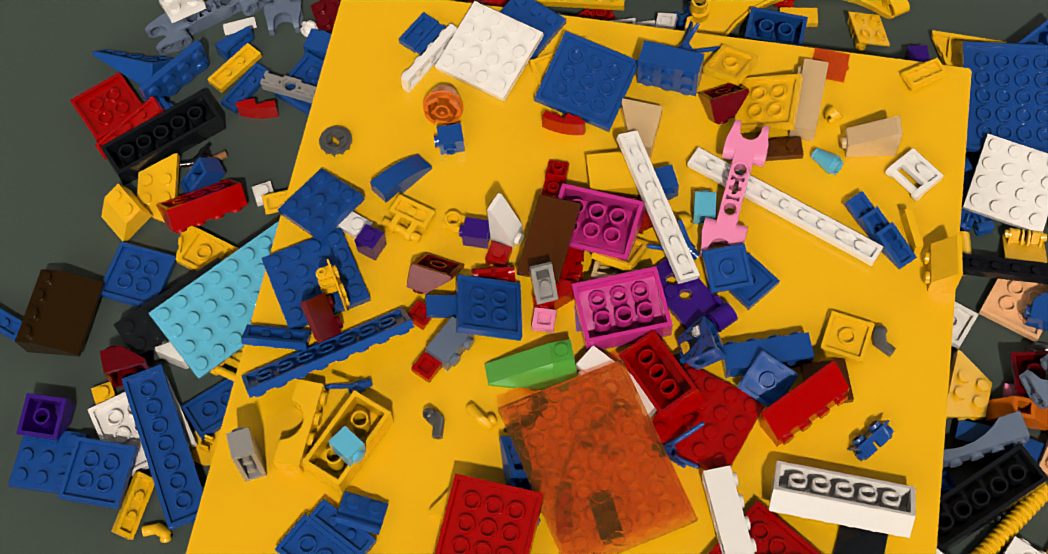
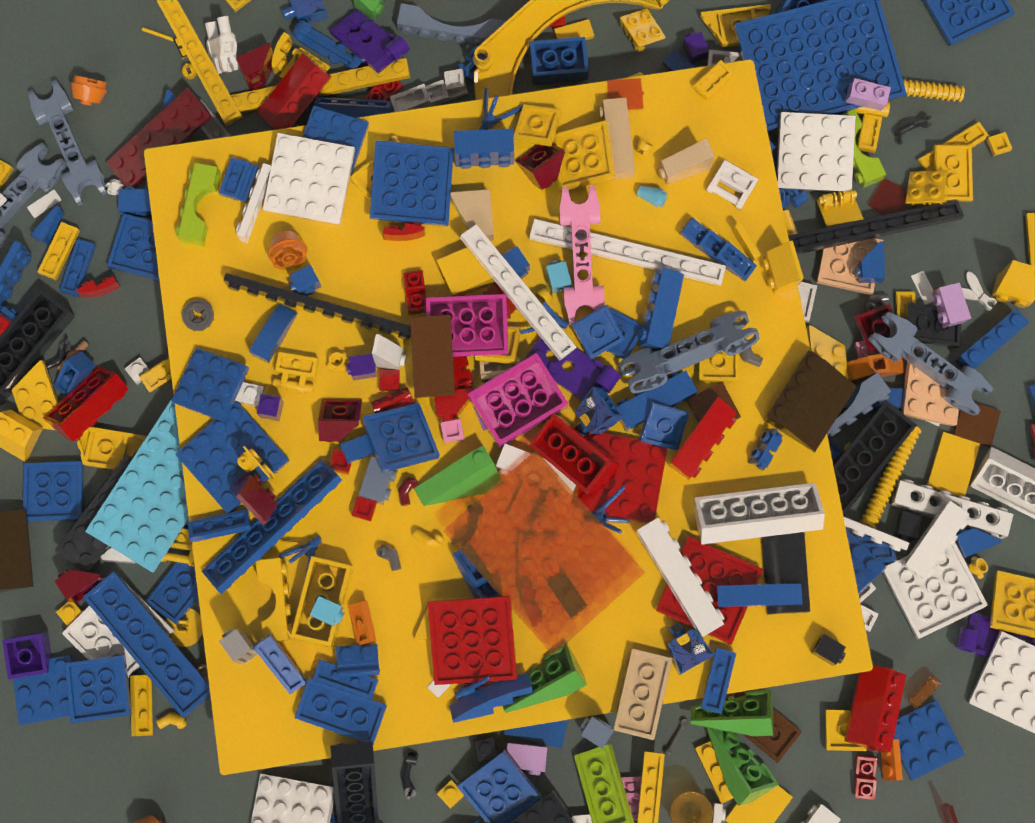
camera: 25 degrees left, 15 degrees up
(278, 85) = (134, 257): light grey piece -> none
(281, 488) = (279, 663): none -> plate
(381, 477) = (362, 623): none -> orange plate
(388, 26) = (203, 181): none -> lime arch
(450, 162) = (311, 305): none -> black plate
(473, 362) = (404, 489): none -> dark red arm
(543, 282) = (443, 402): light grey slope -> none
(784, 149) = (611, 193): reddish brown plate -> none
(800, 268) = (661, 309): none -> blue brick
(856, 310) = (655, 366): none -> sand blue piece
(935, 406) = (810, 401): none -> dark brown slope

